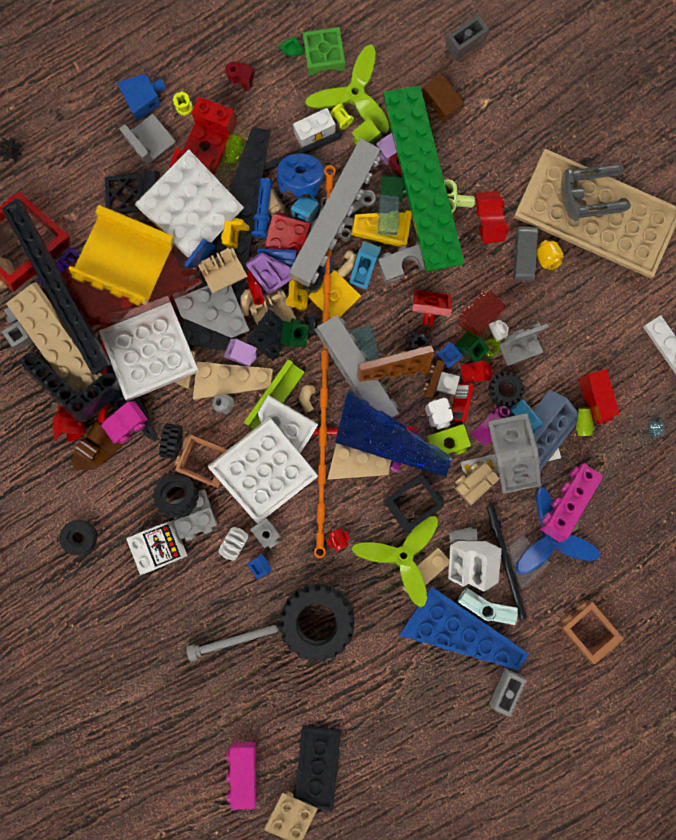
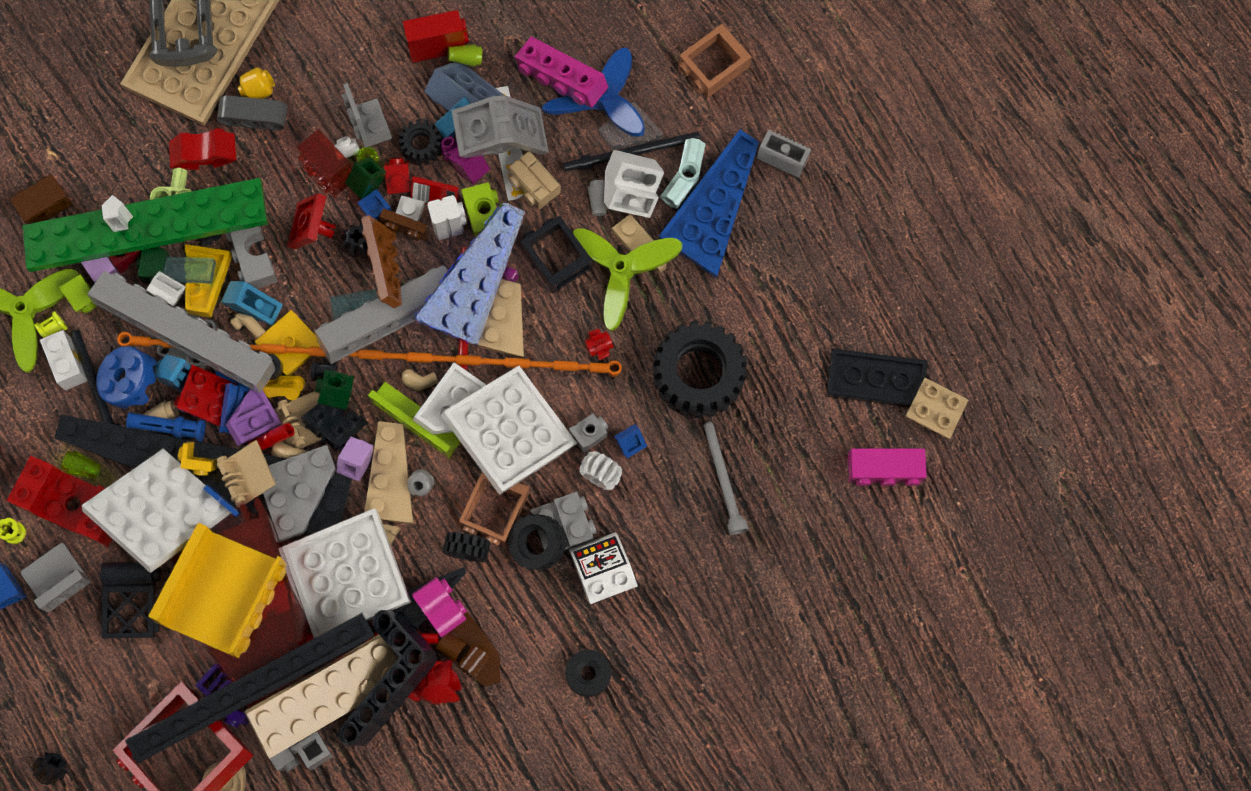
camera: 95 degrees left, 10 degrees down
(370, 198) = (166, 288): none -> white piece
(425, 153) = (116, 214): none -> white piece

